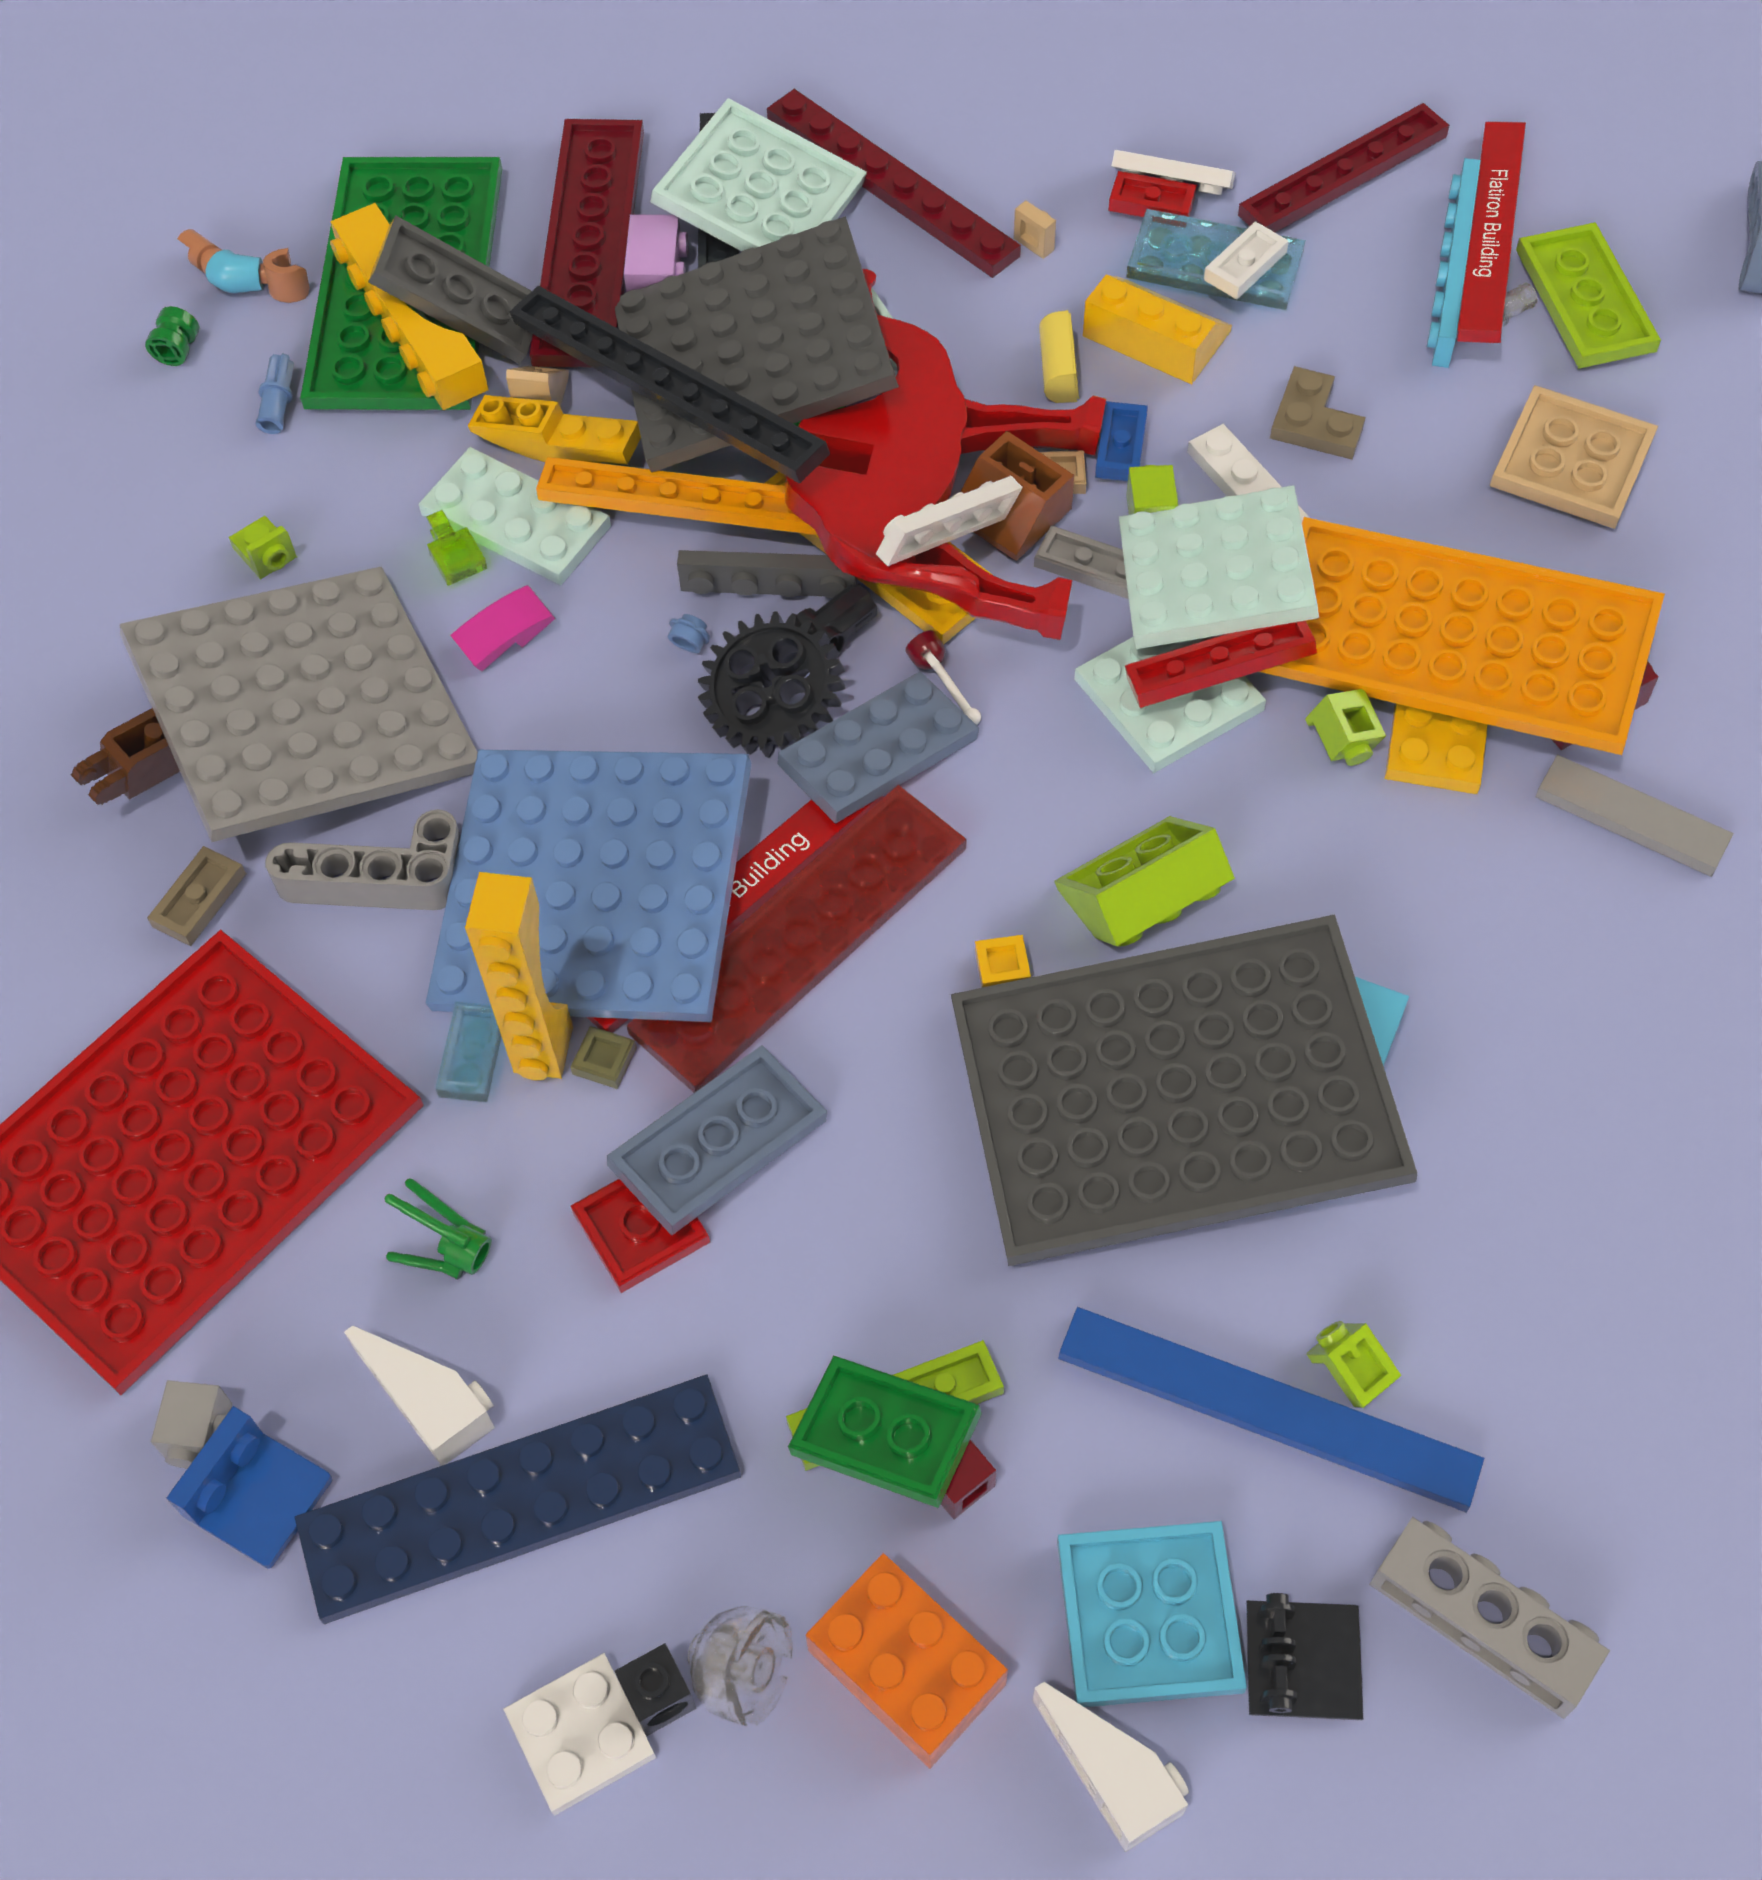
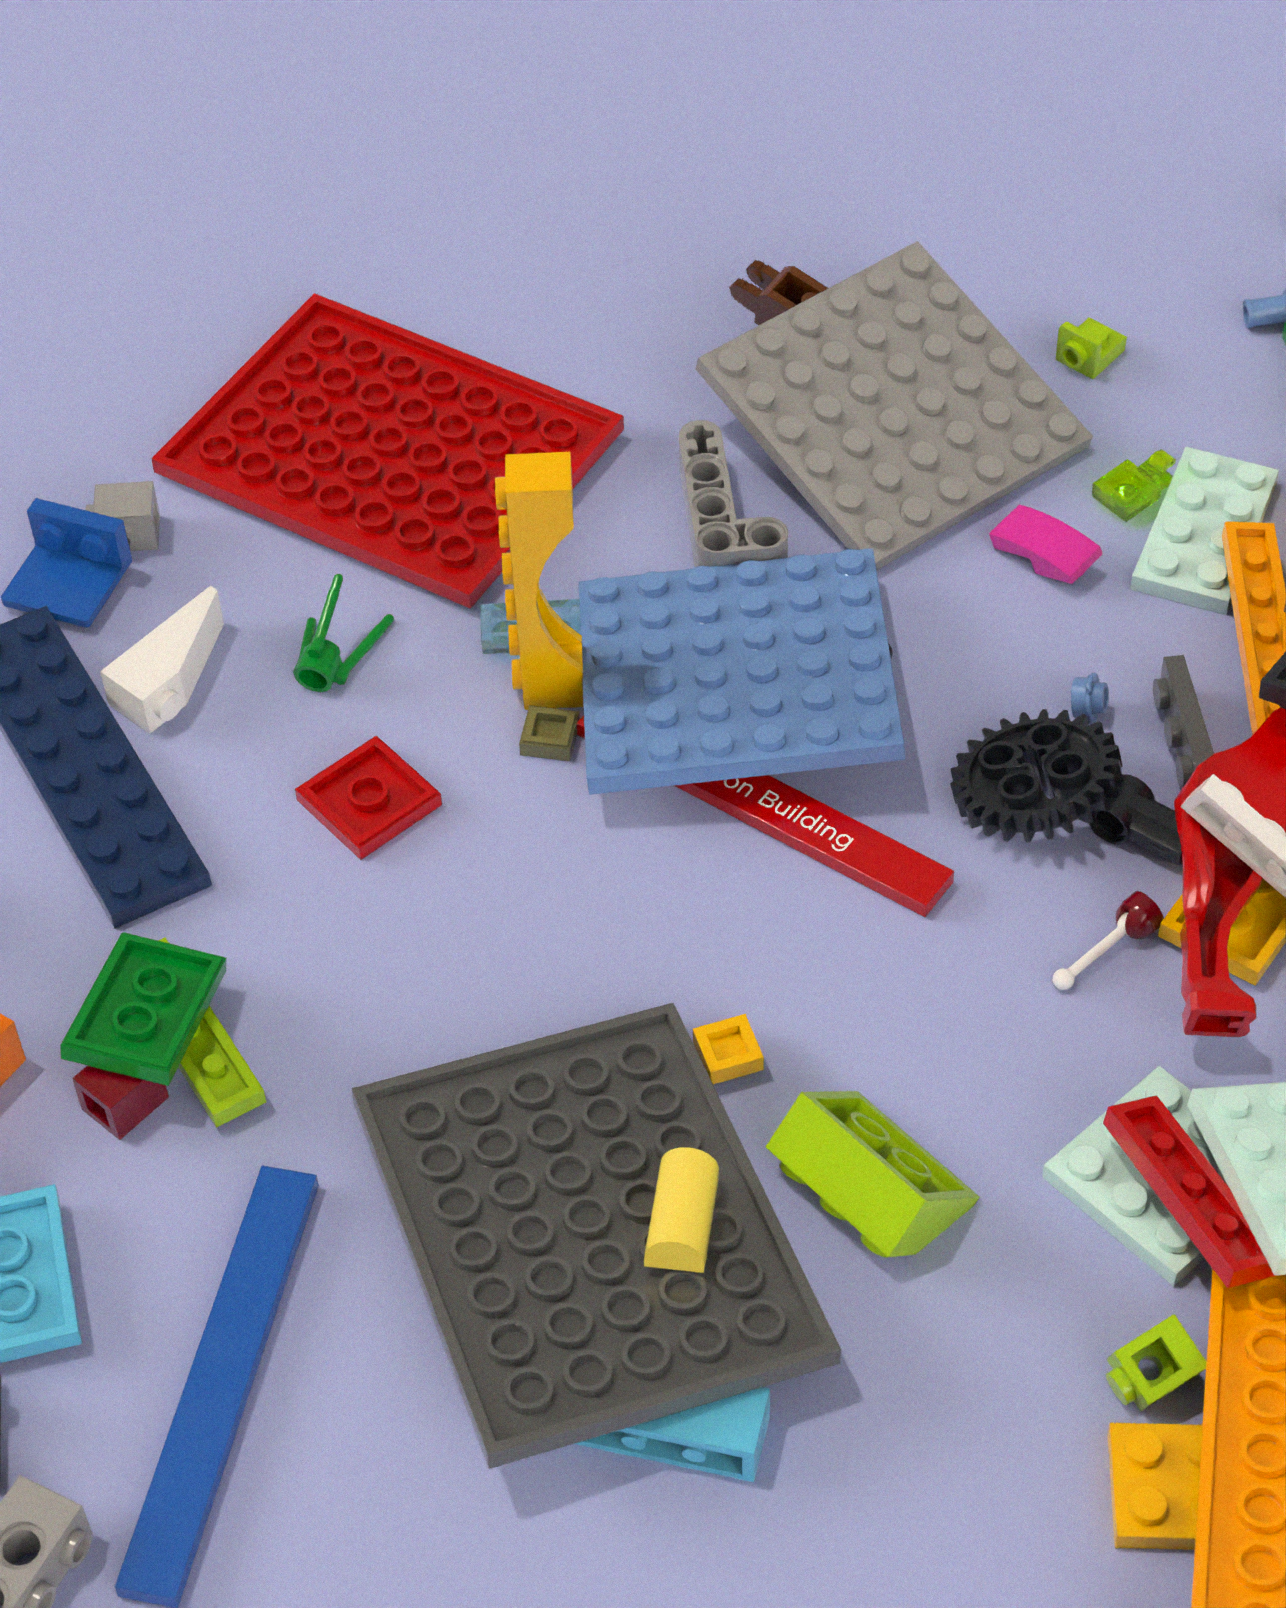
camera: 80 degrees right, 10 degrees down
(196, 895) = (660, 395): dark tan plate -> none
(716, 1139) = (461, 829): sand blue plate -> none
(806, 933) = (736, 872): clear red plate -> none
(877, 746) = (987, 890): sand blue plate -> none
(1195, 1005) = (682, 1211): none -> light yellow brick
(1354, 1361) = (277, 1450): lime bracket -> none

